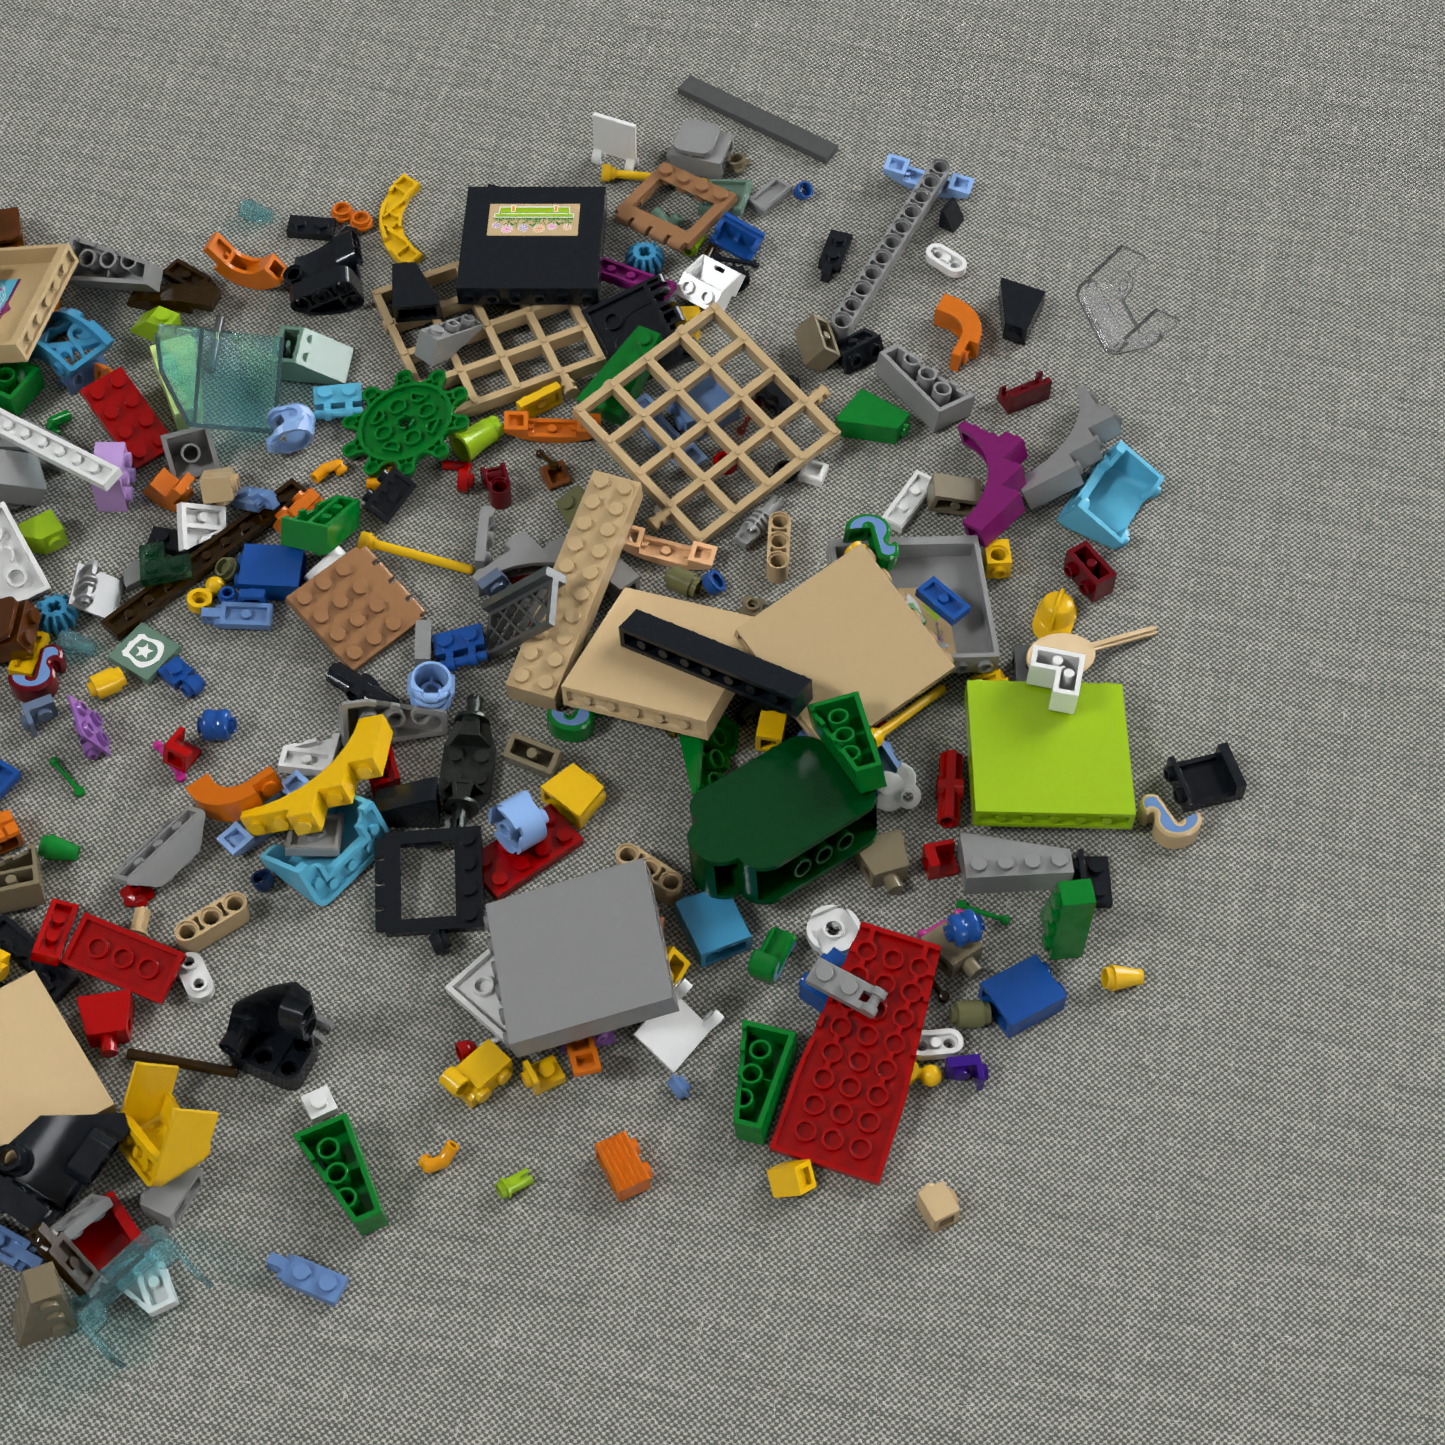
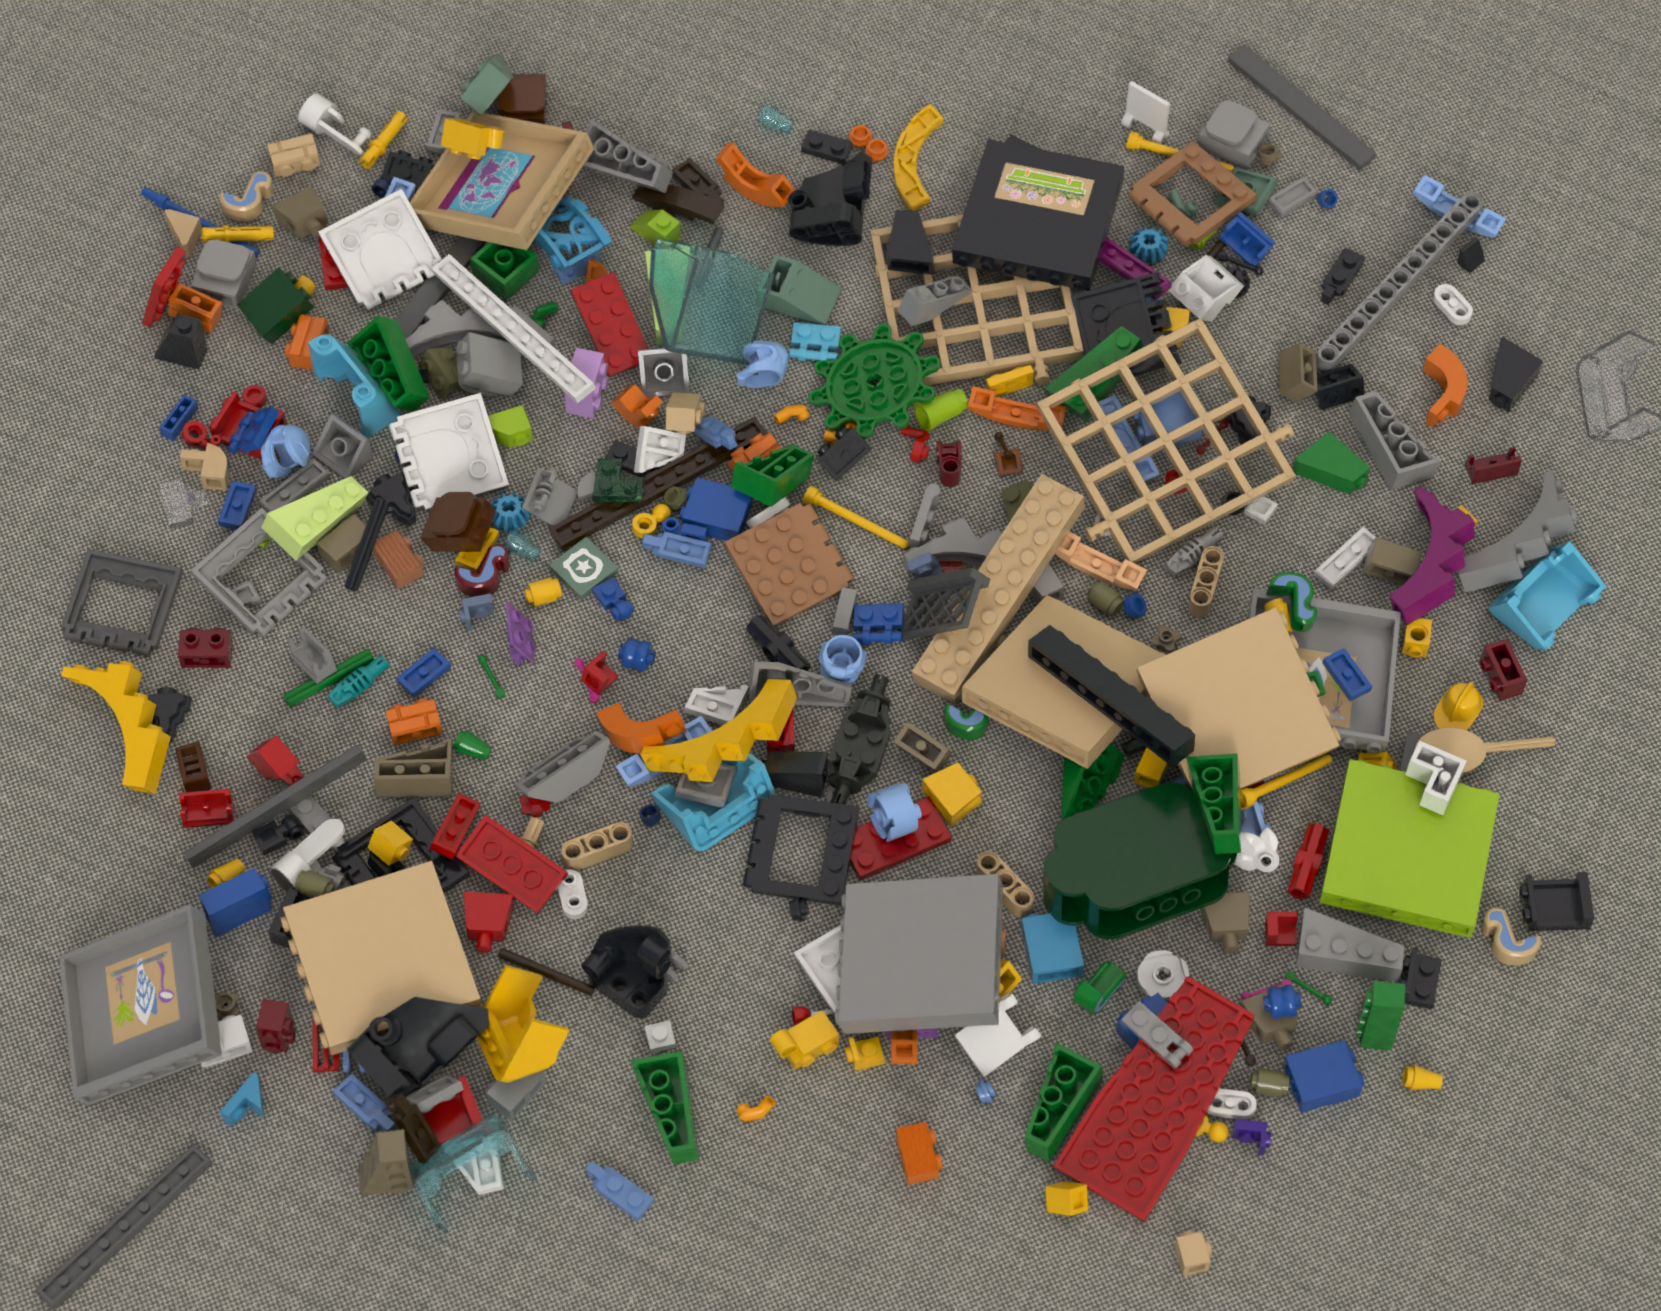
camera: 15 degrees right, 5 degrees up
(513, 1183) = (817, 1147): lime pin -> none

